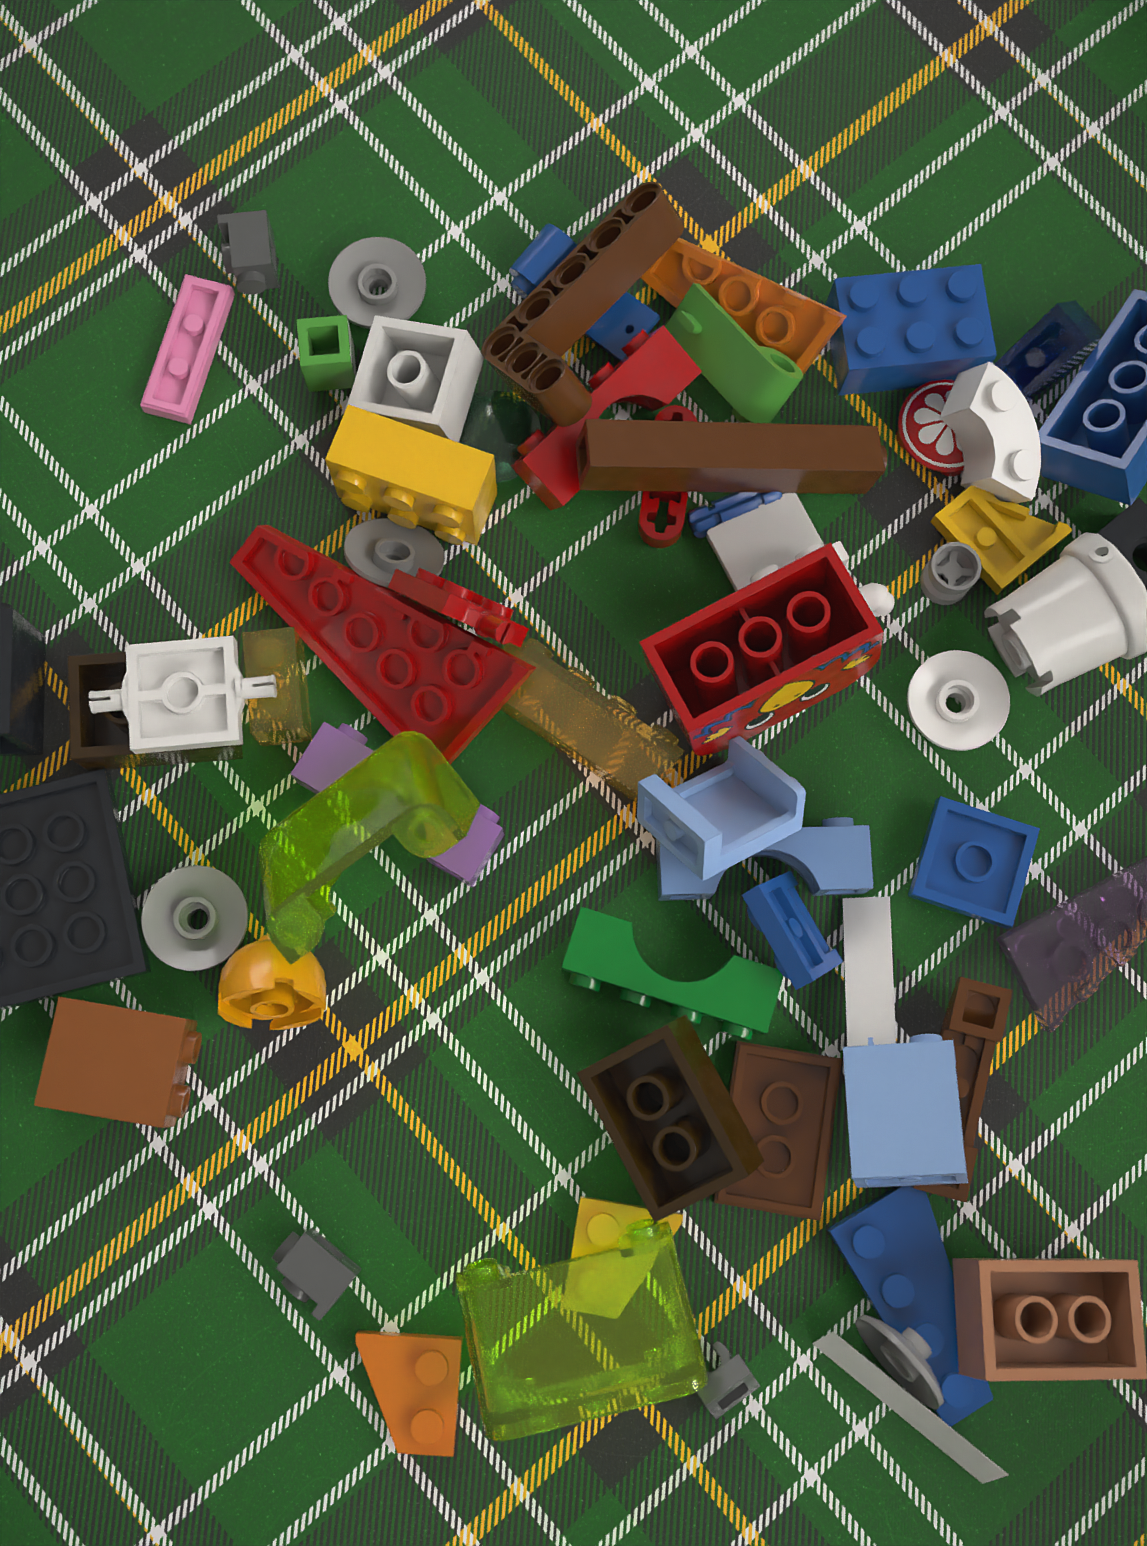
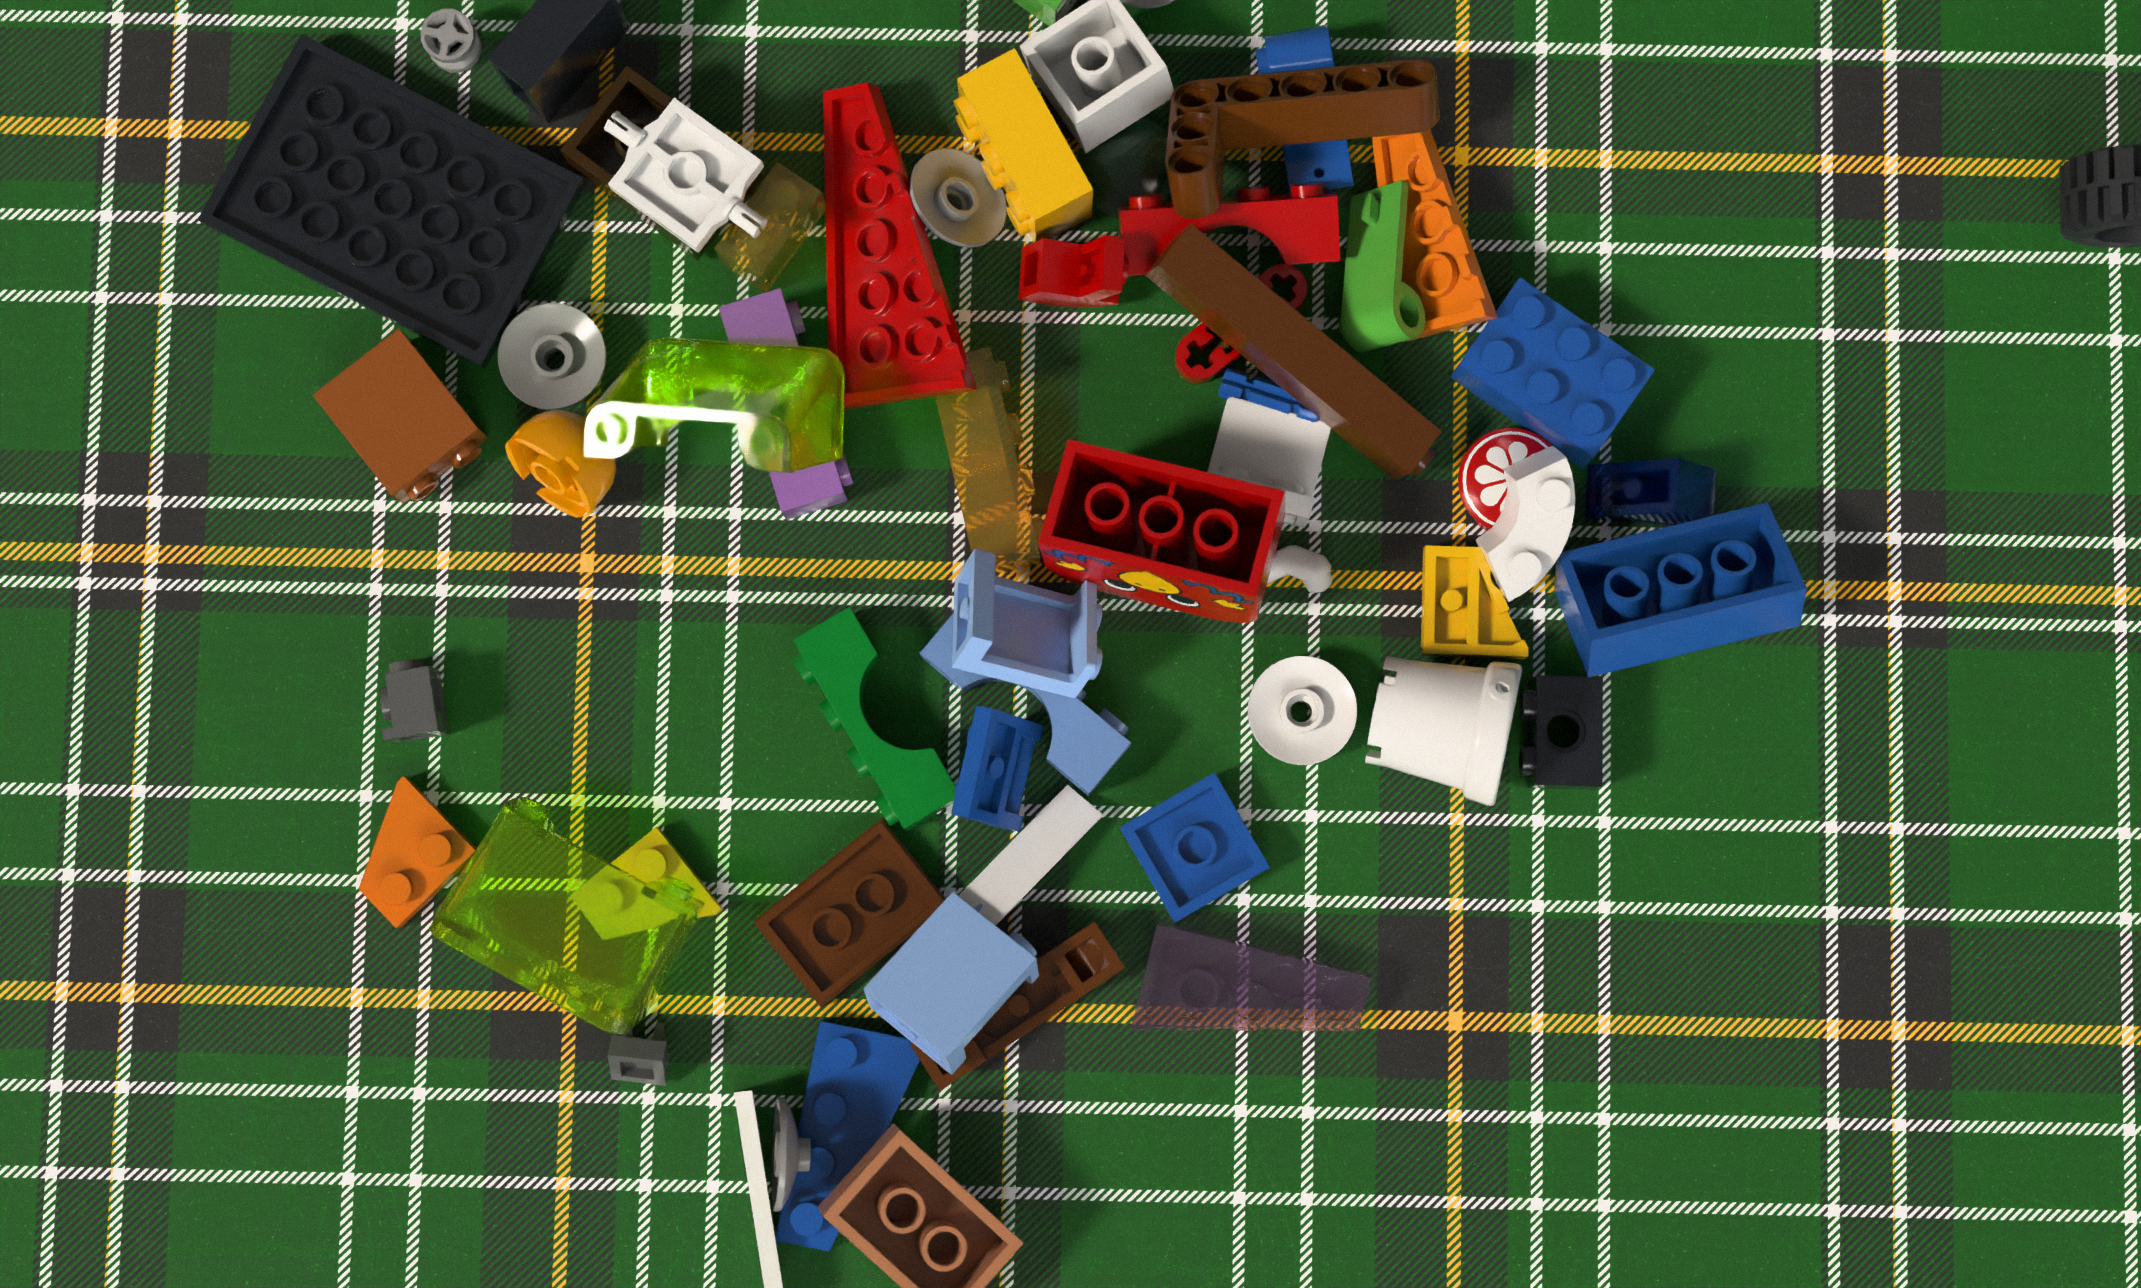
camera: 45 degrees right, 5 degrees up
(459, 603) = (962, 289): red plate -> none
(526, 535) = (1073, 273): none -> red brick
(671, 1119) = (772, 824): dark brown brick -> none
(957, 565) = (1400, 597): light grey wheel -> none

